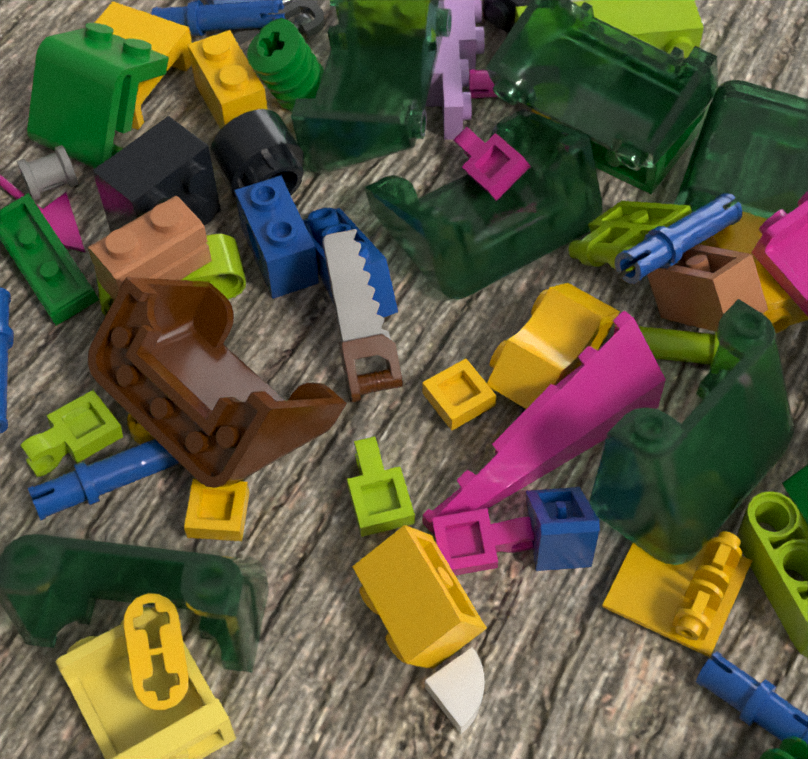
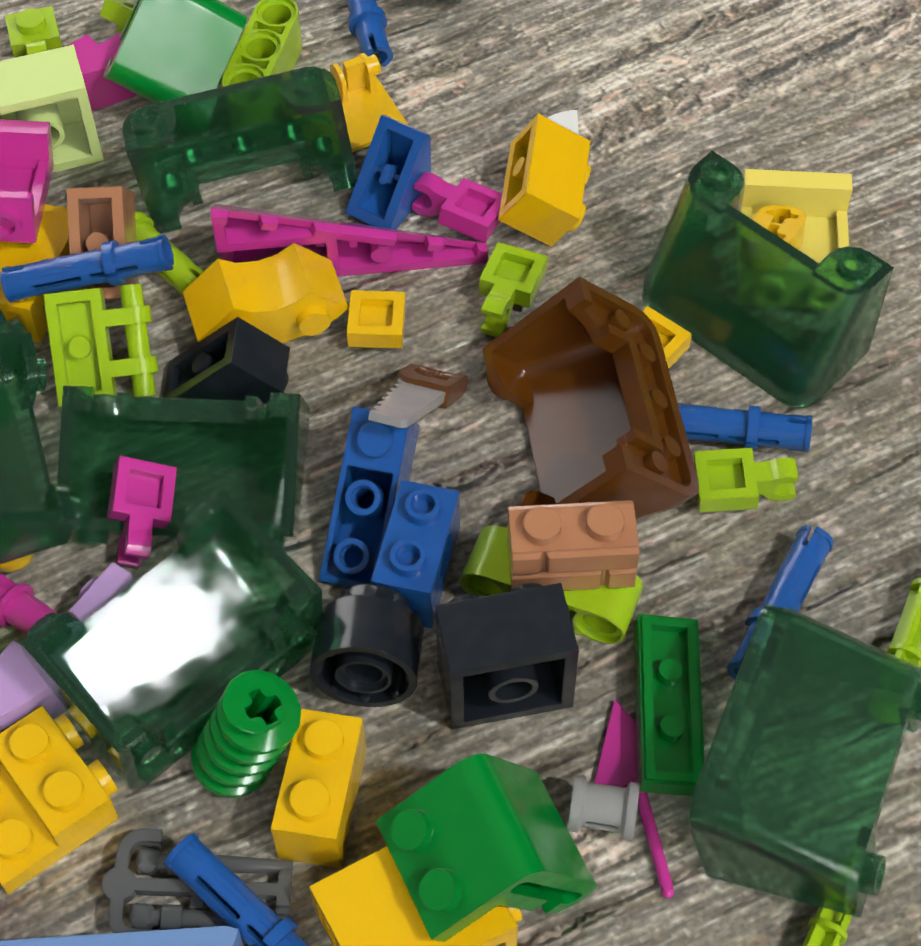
camera: 145 degrees left, 0 degrees up
(516, 276) = (229, 366): none -> black slope

